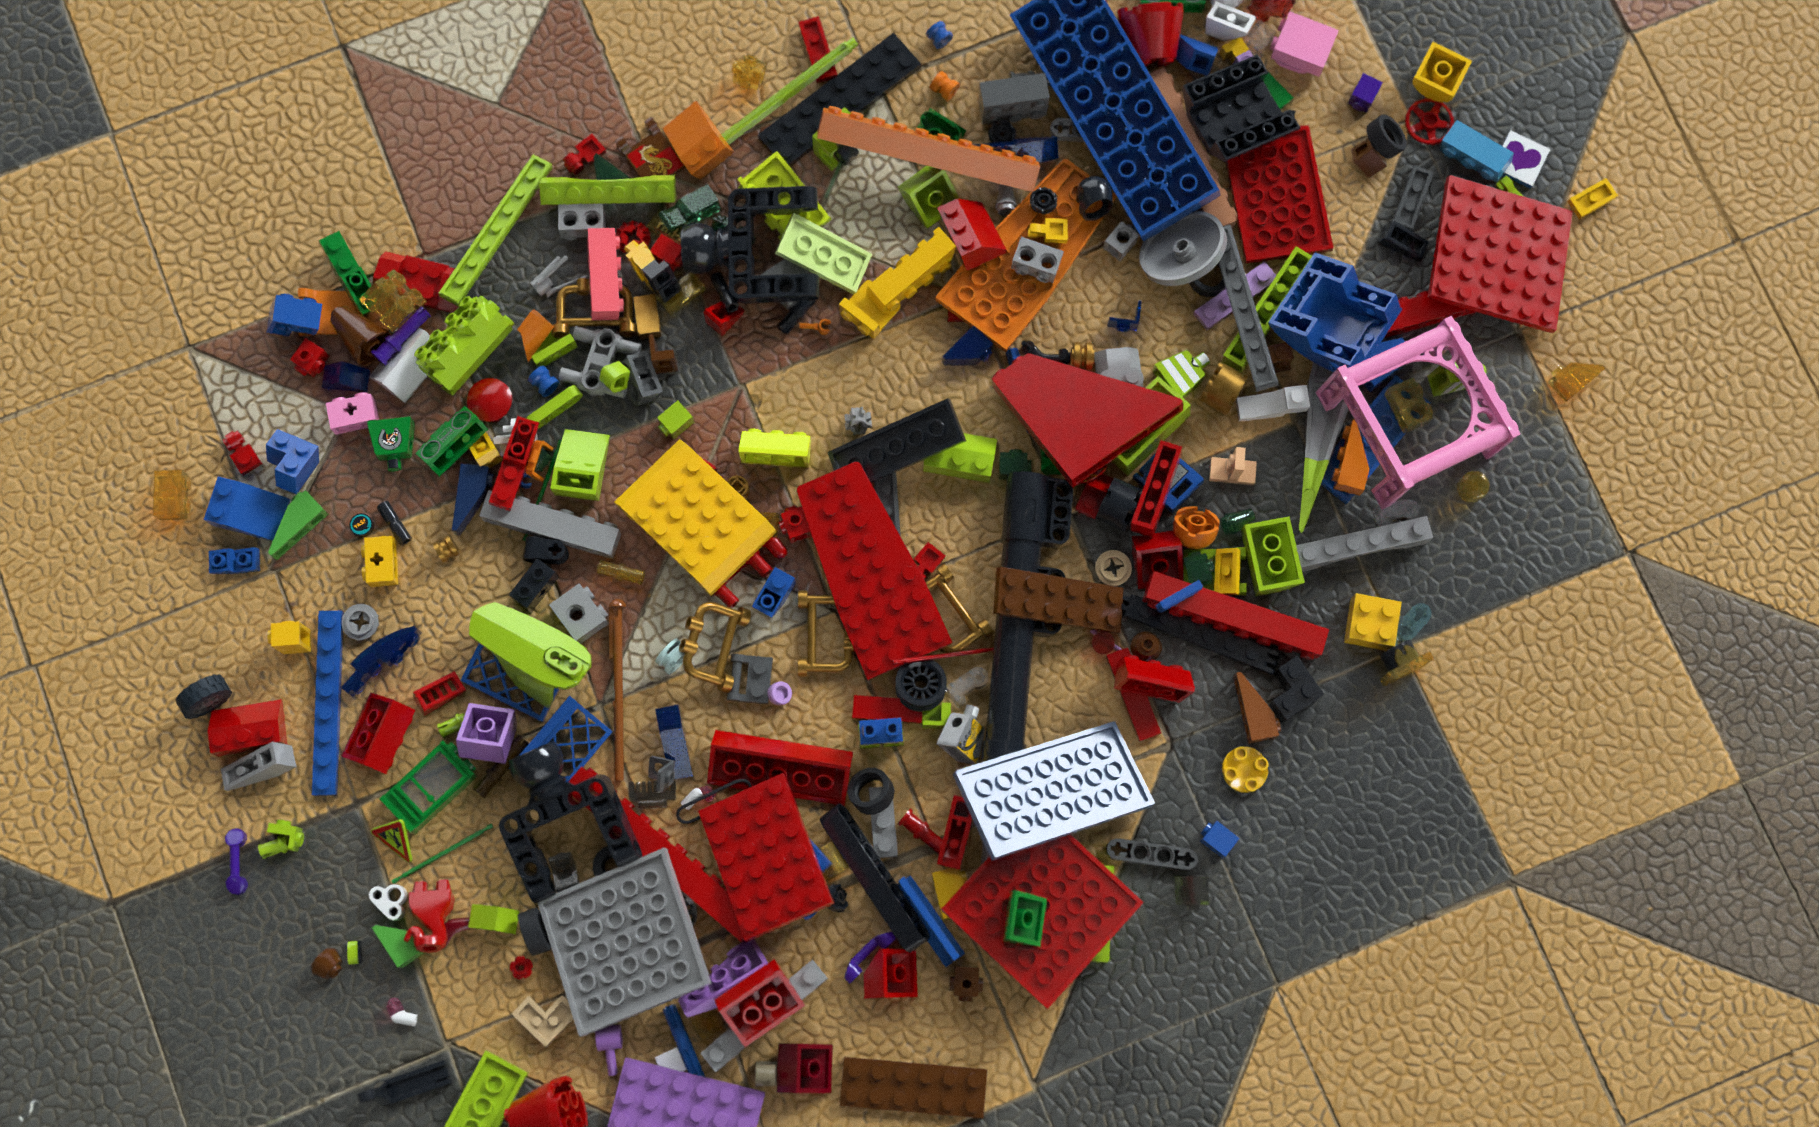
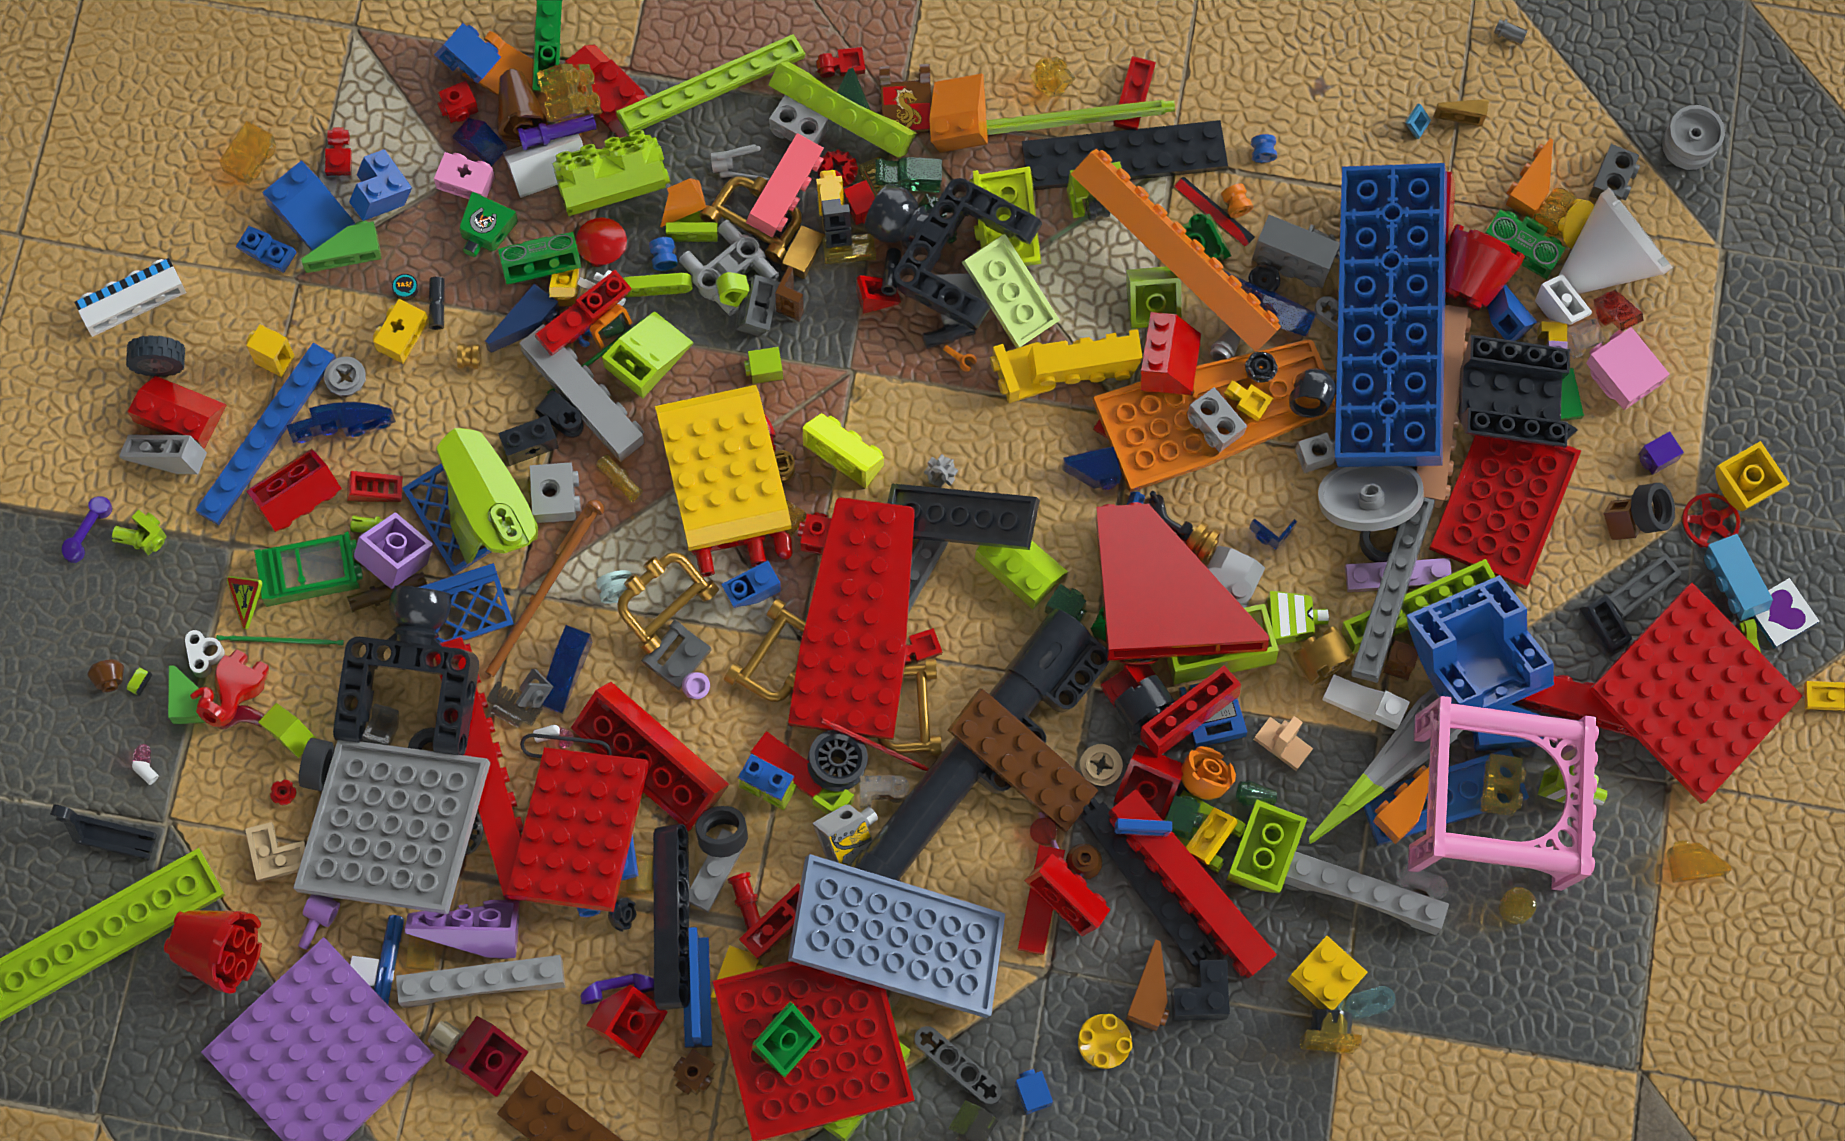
camera: 30 degrees right, 5 degrees down
(151, 662) = (129, 296): none -> white brick
(759, 1003) = (481, 961): red slope -> none
(936, 104) = (1217, 213): none -> red sticker

